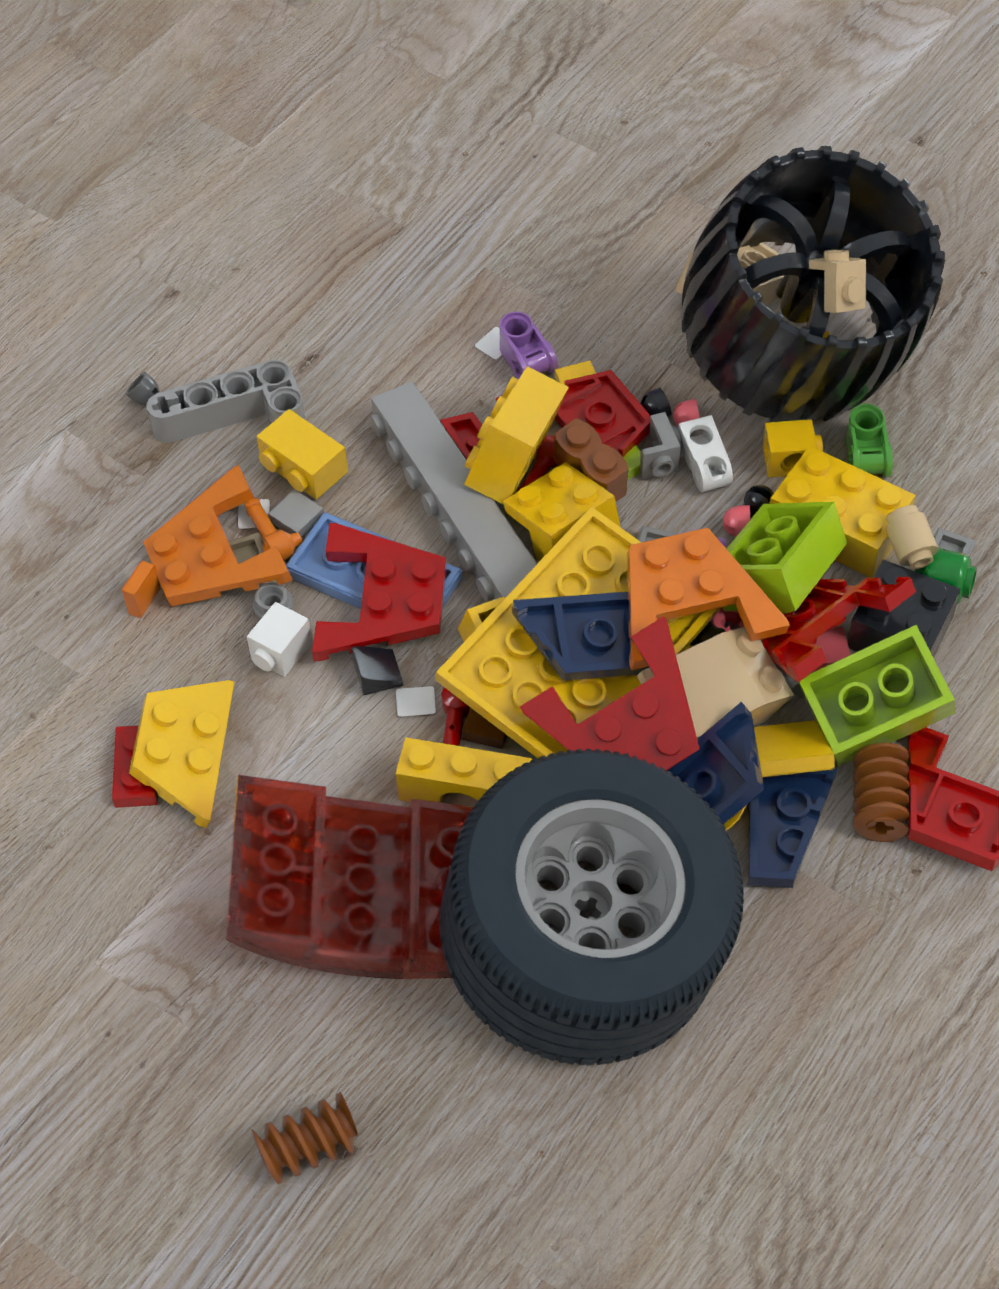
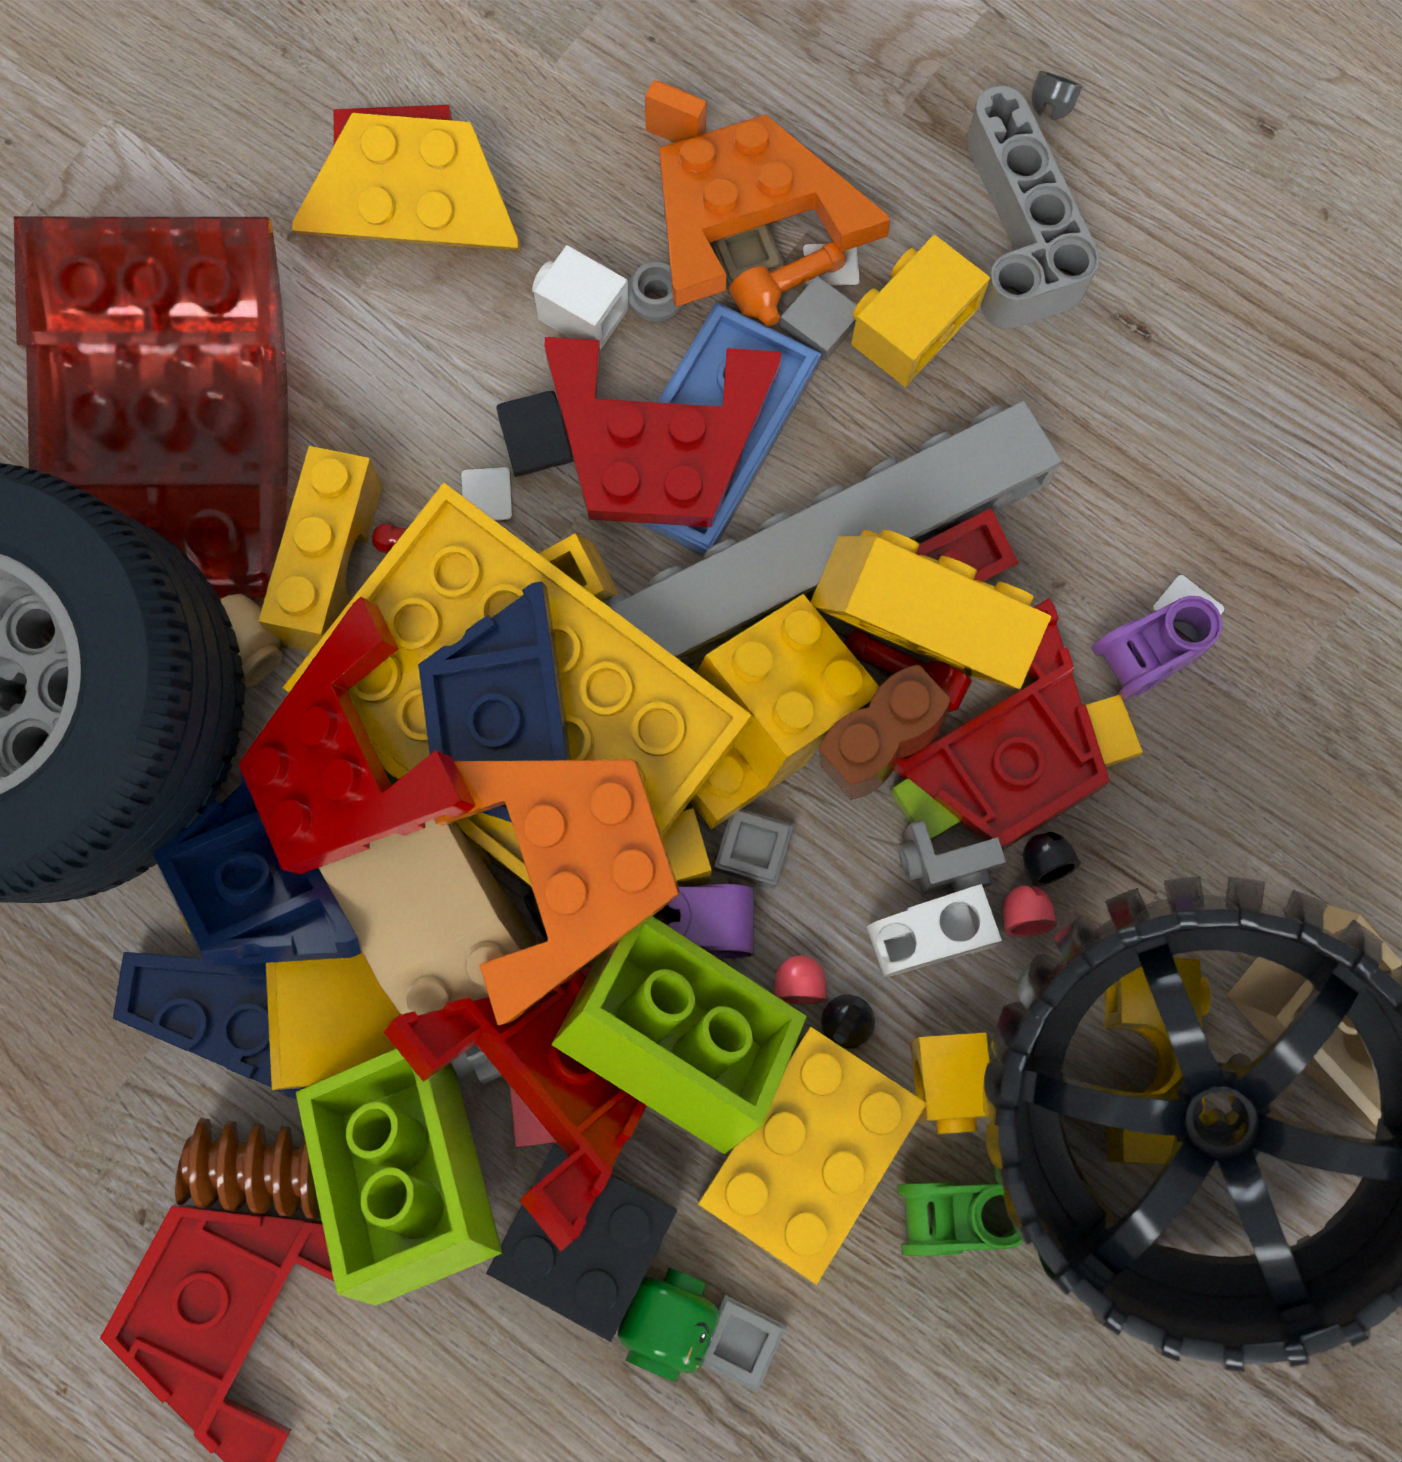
camera: 85 degrees right, 20 degrees up
(843, 281) = (1140, 1143): tan bracket -> none
(911, 537) = (707, 1263): tan brick -> none

